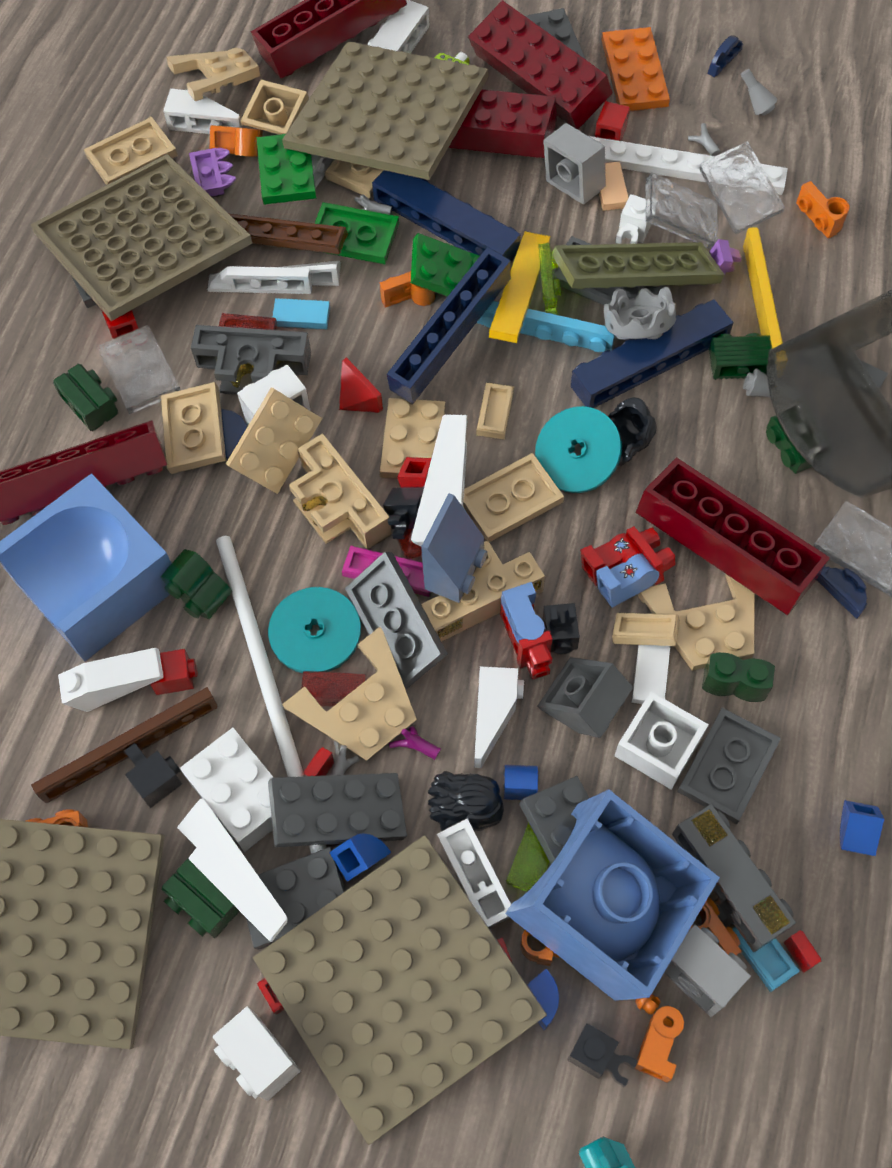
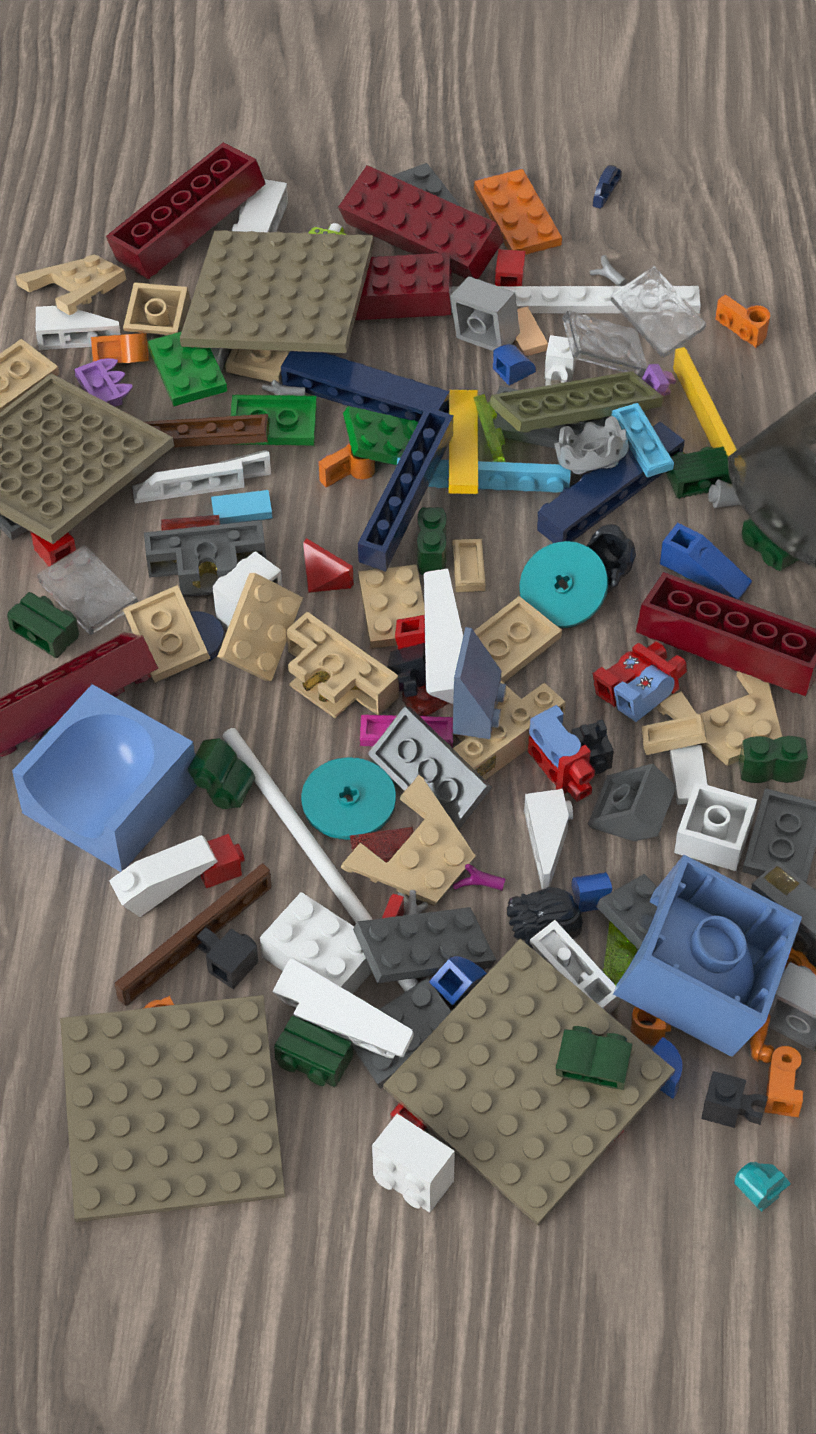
camera: 15 degrees left, 10 degrees down
(462, 990) = (594, 1058): none -> dark green brick
(464, 381) = (431, 539): none -> dark green brick
(590, 215) = (511, 364): none -> blue brick
(692, 316) = (643, 440): none -> medium azure tile
(720, 452) = (702, 562): none -> blue slope
(761, 98) = (655, 223): light grey cone -> none

